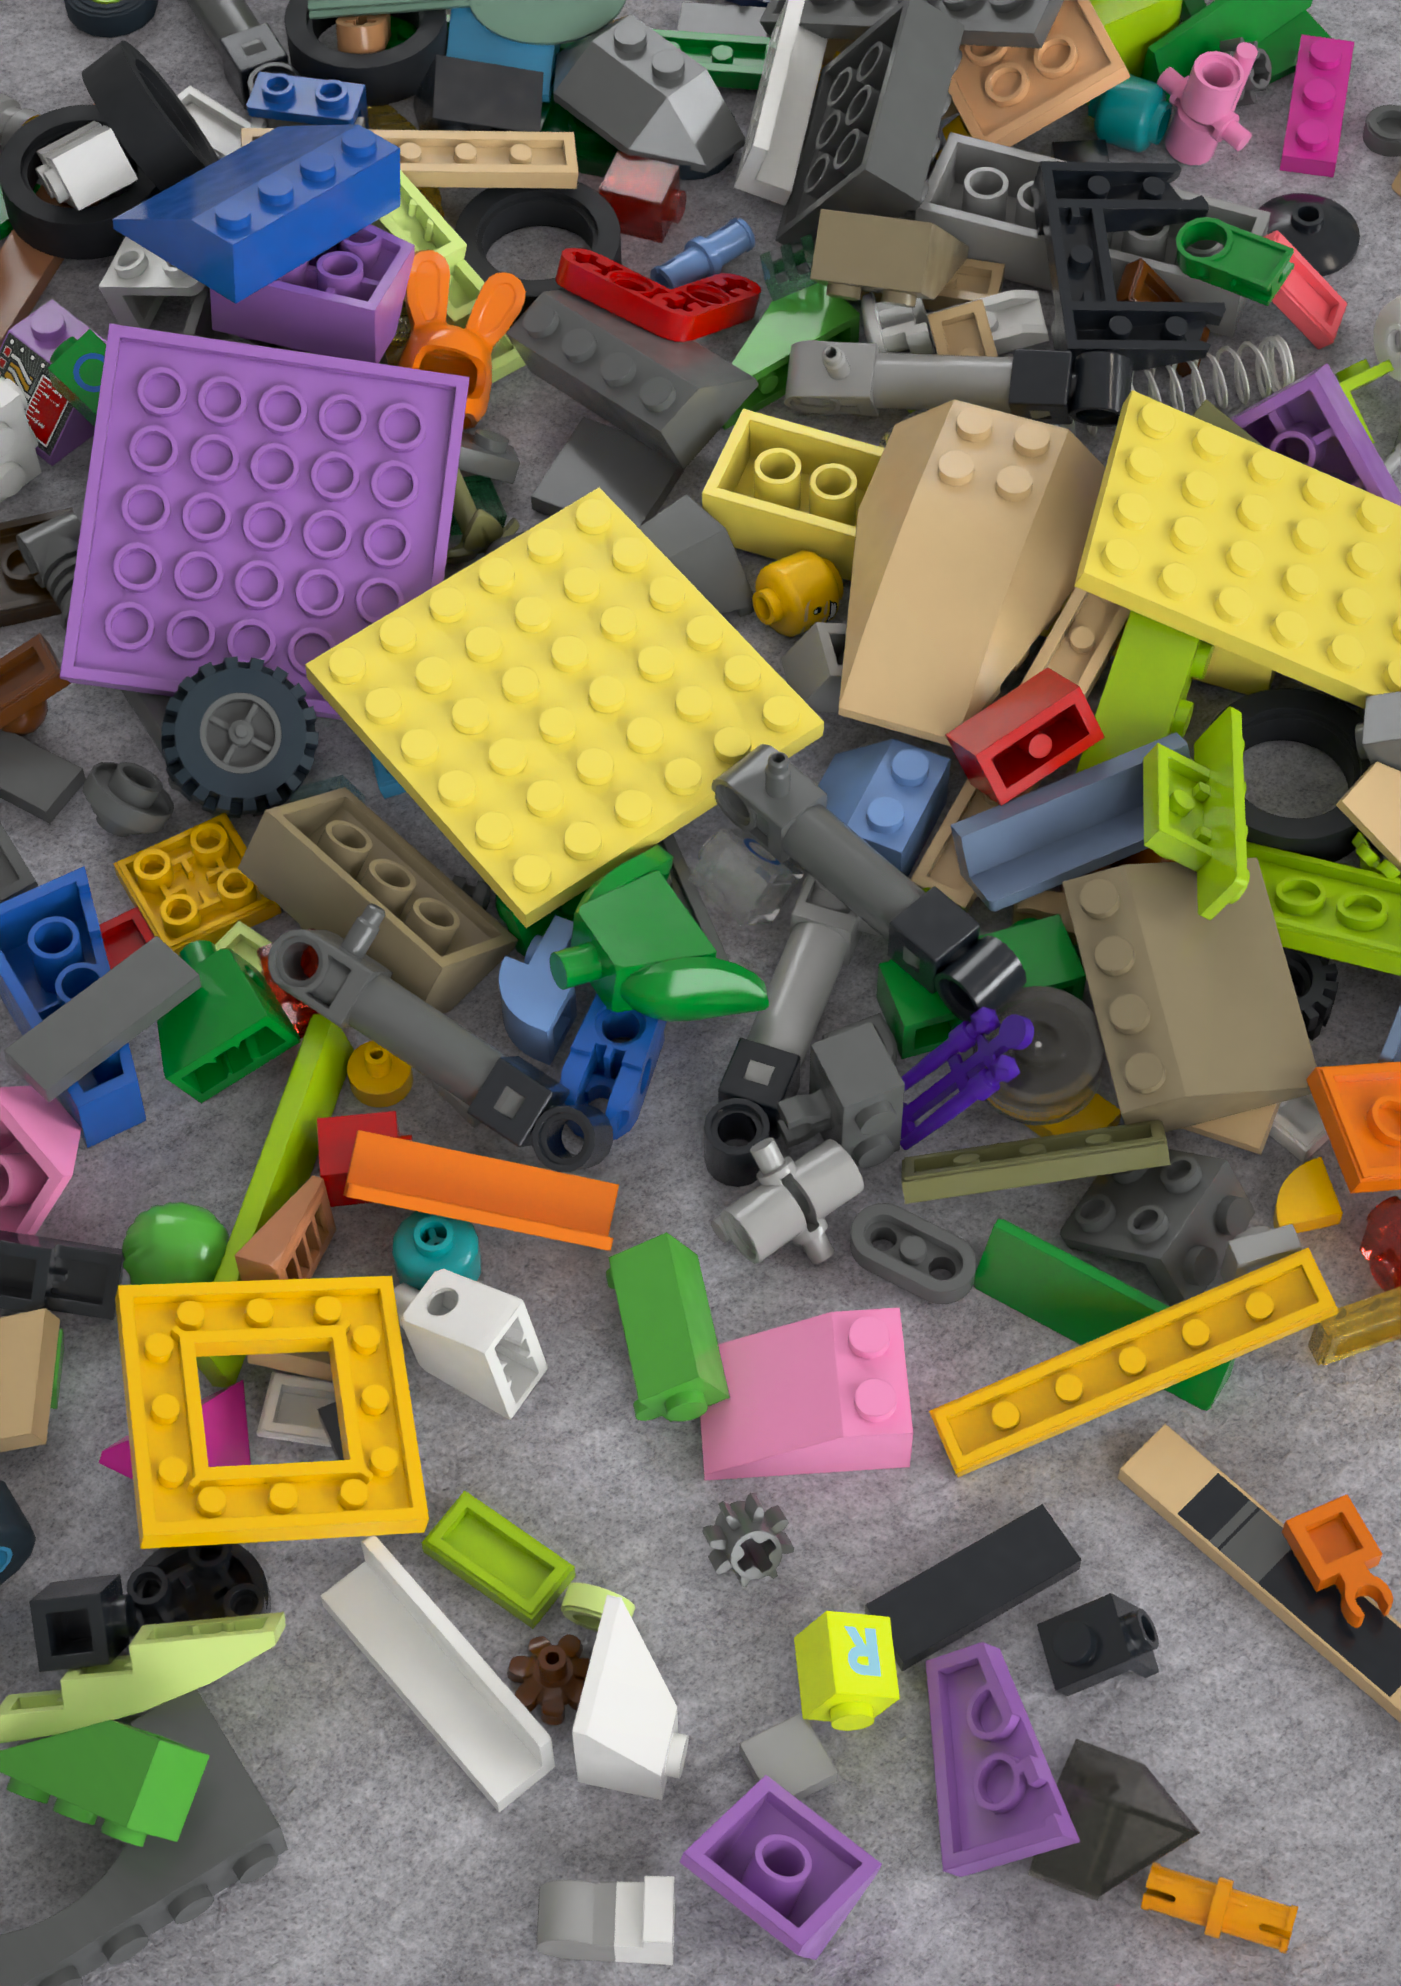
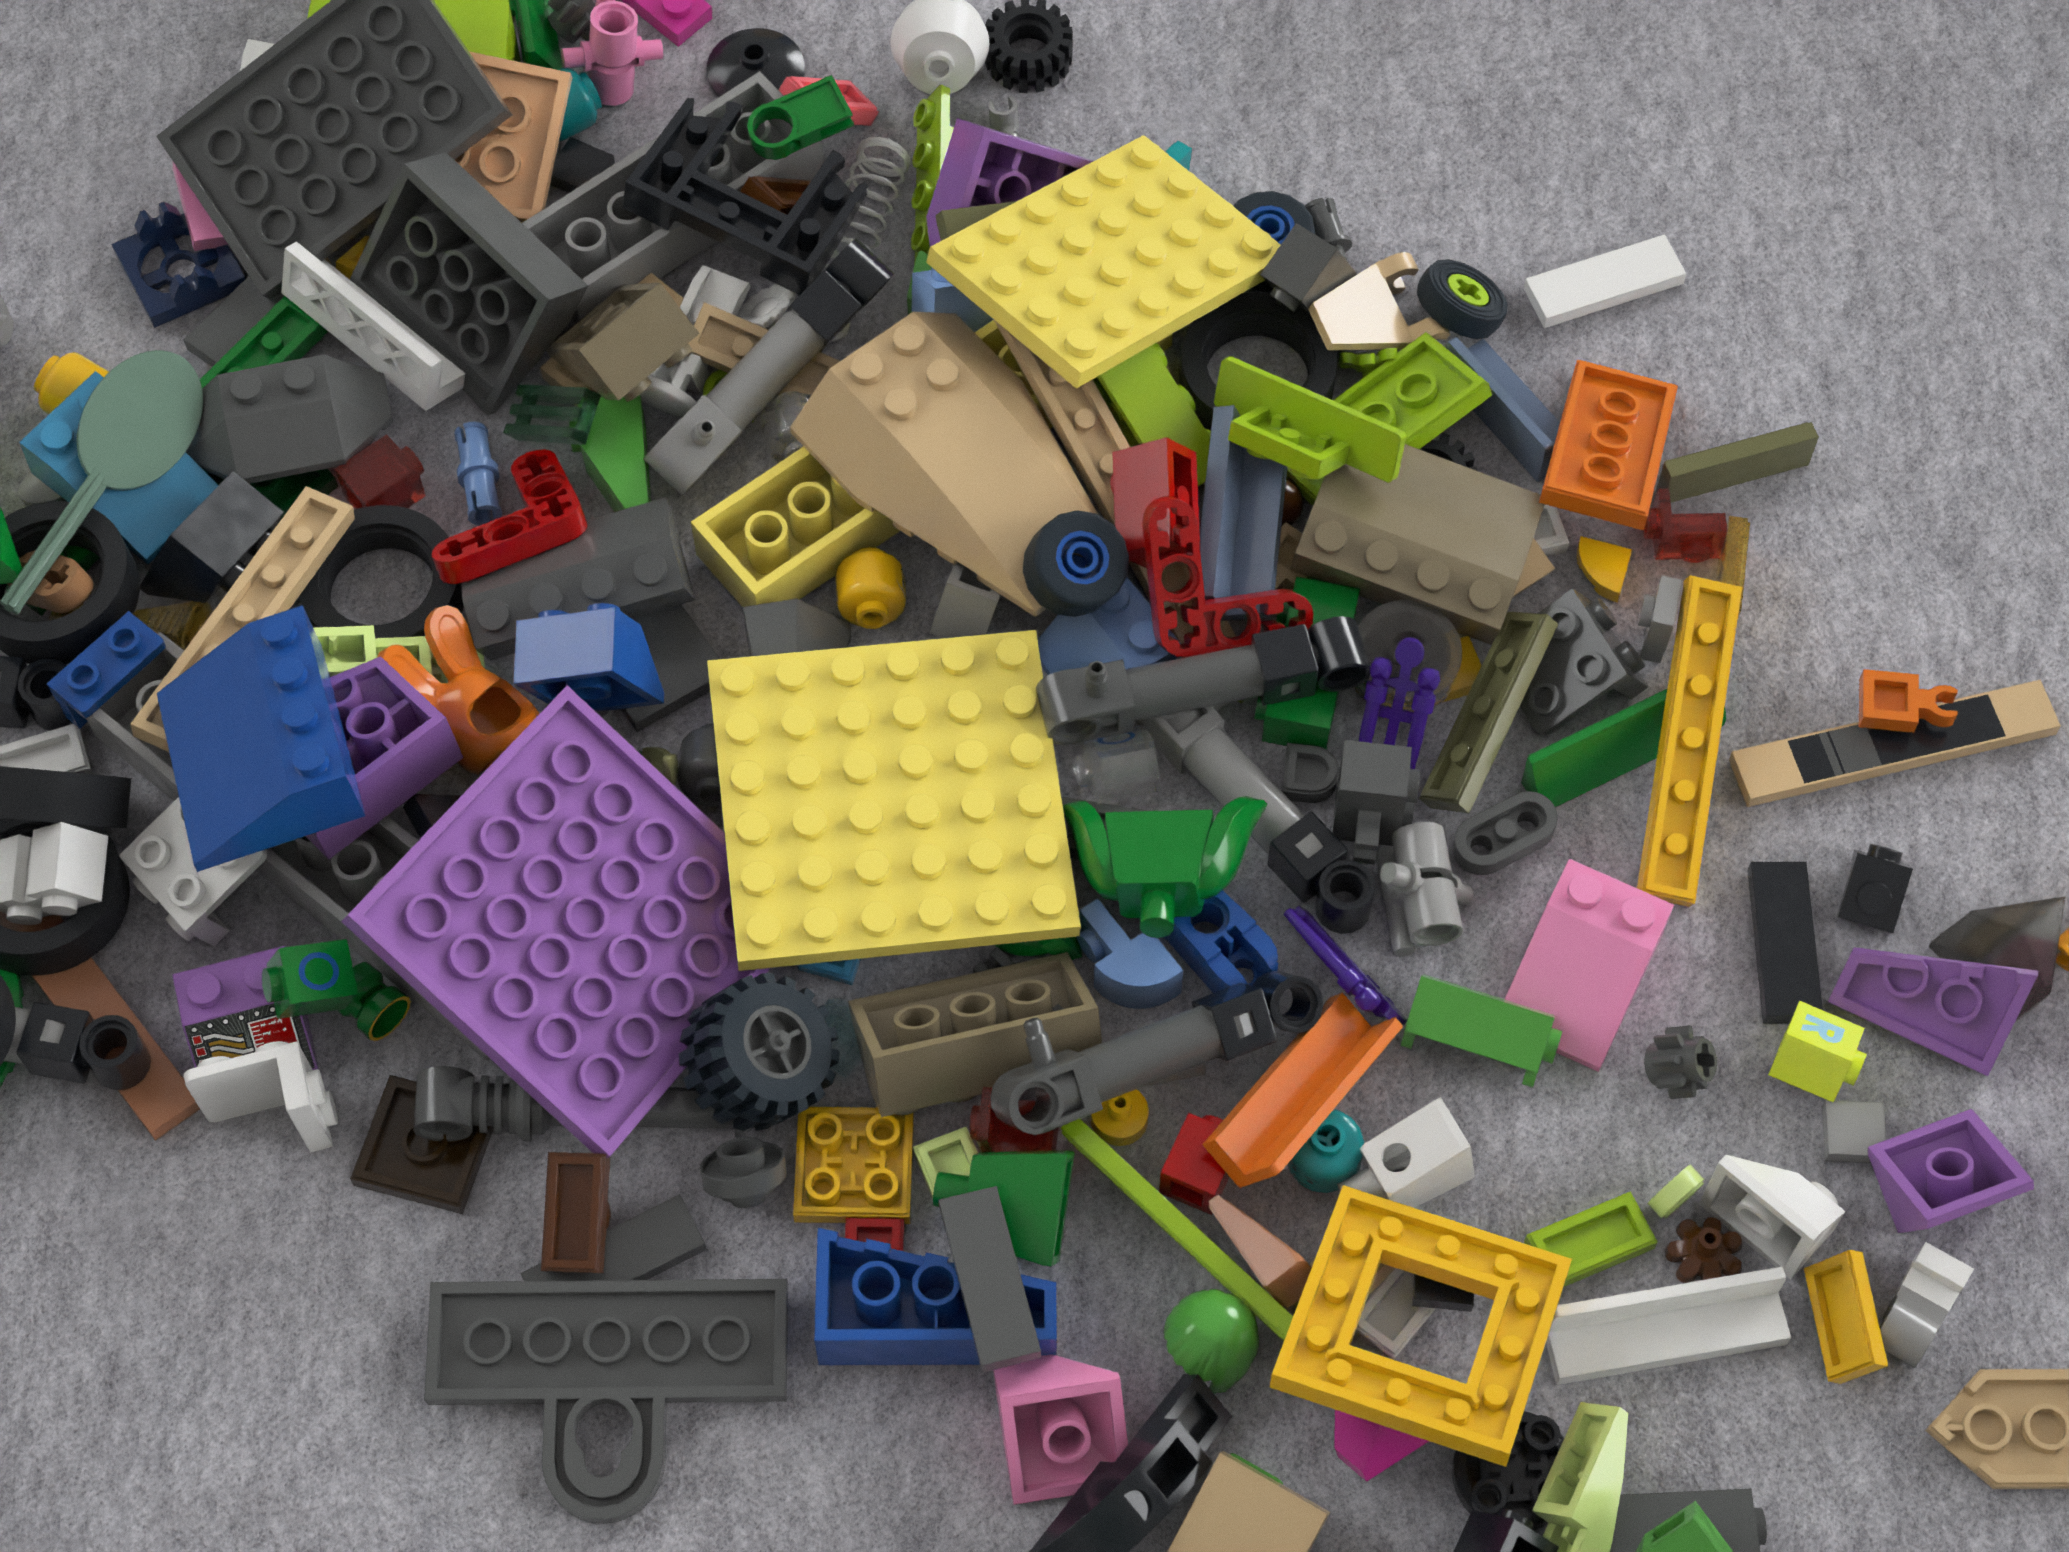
camera: 60 degrees left, 5 degrees up
(540, 405) = (592, 652): none -> slope
(550, 1845) = (1845, 1317): none -> yellow tile
(652, 1210) = (1349, 975): none -> dark purple piece
(902, 722) = (1060, 577): none -> black wheel
(930, 834) = (1202, 614): none -> red beam

